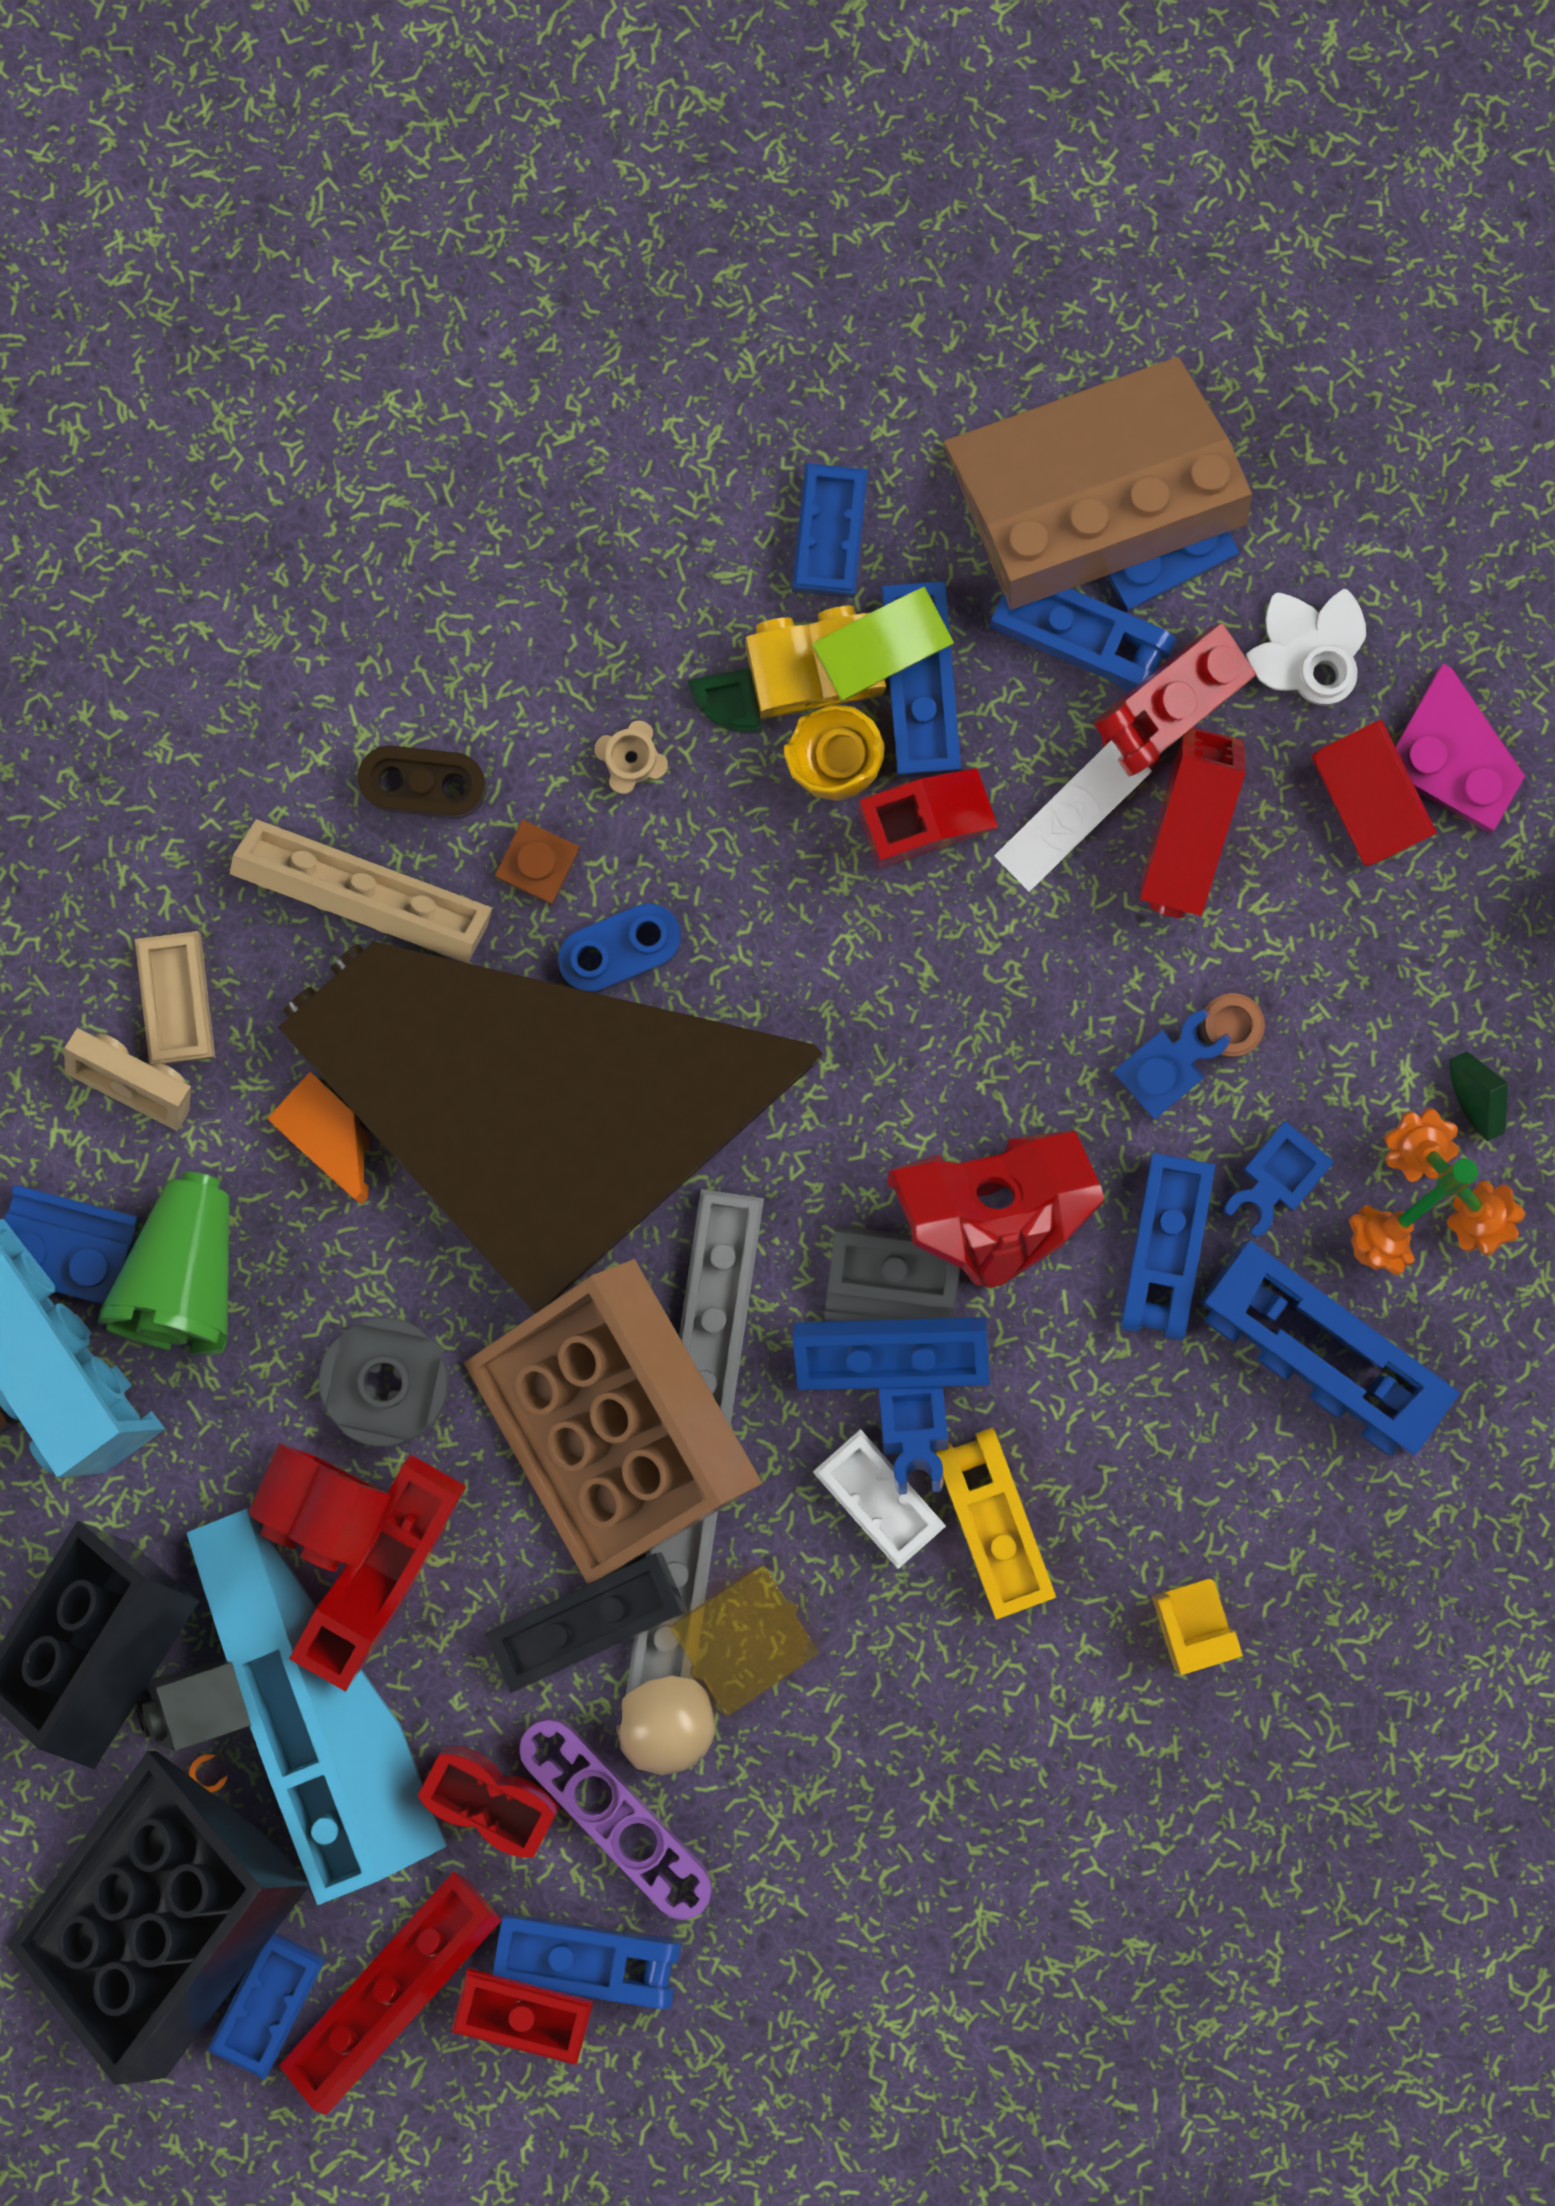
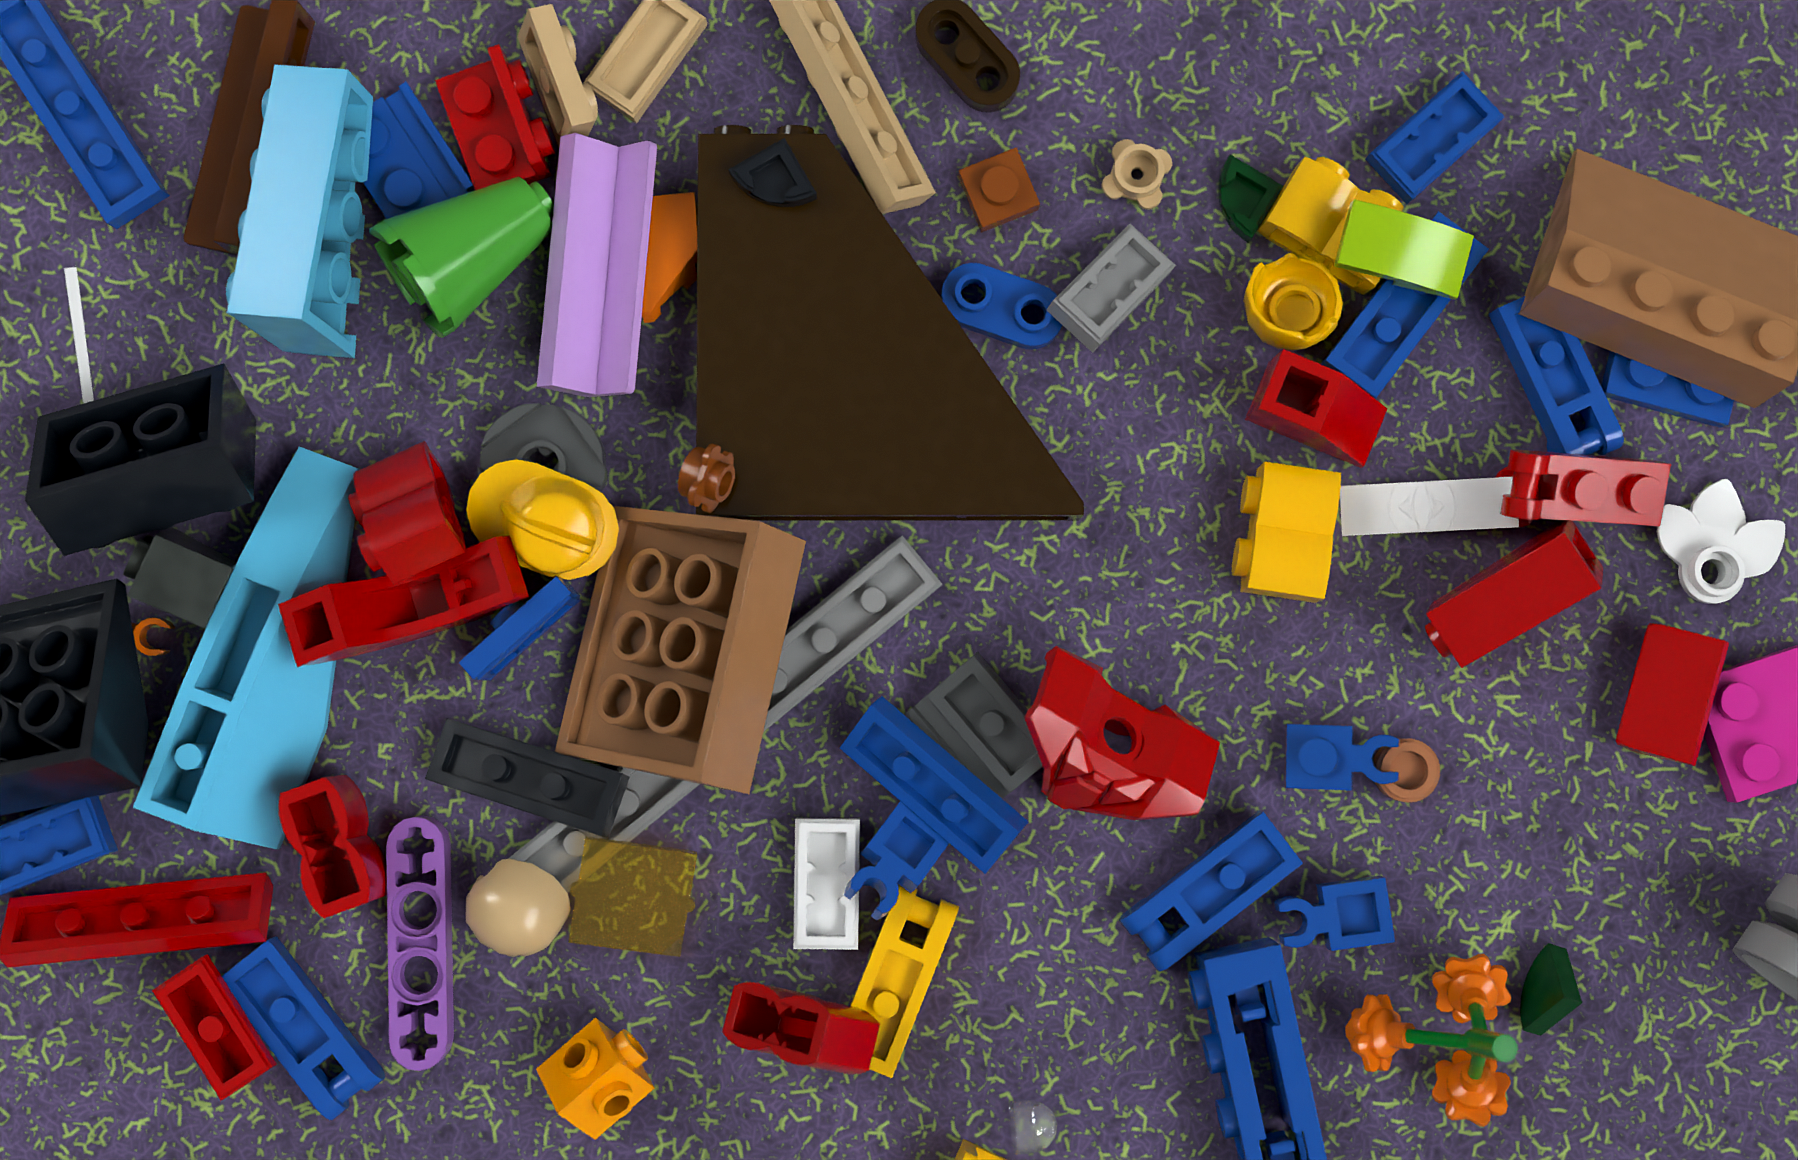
camera: 40 degrees right, 0 degrees up
(110, 1156) = (494, 123): none -> red bracket
(290, 1194) = (596, 267): none -> lavender panel
(366, 1009) = (774, 177): none -> black tile
(430, 1412) = (552, 519): none -> yellow piece
(477, 1517) = (518, 628): none -> blue plate
(520, 1278) = (706, 477): none -> dark orange plate
(689, 862) = (1111, 288): none -> light grey plate
(838, 1794) = (596, 1077): none -> light orange brick
(955, 1619) = (801, 1028): none -> red brick
(985, 927) = (1288, 531): none -> yellow brick
(1191, 1539) = (1031, 1126): none -> clear hinge

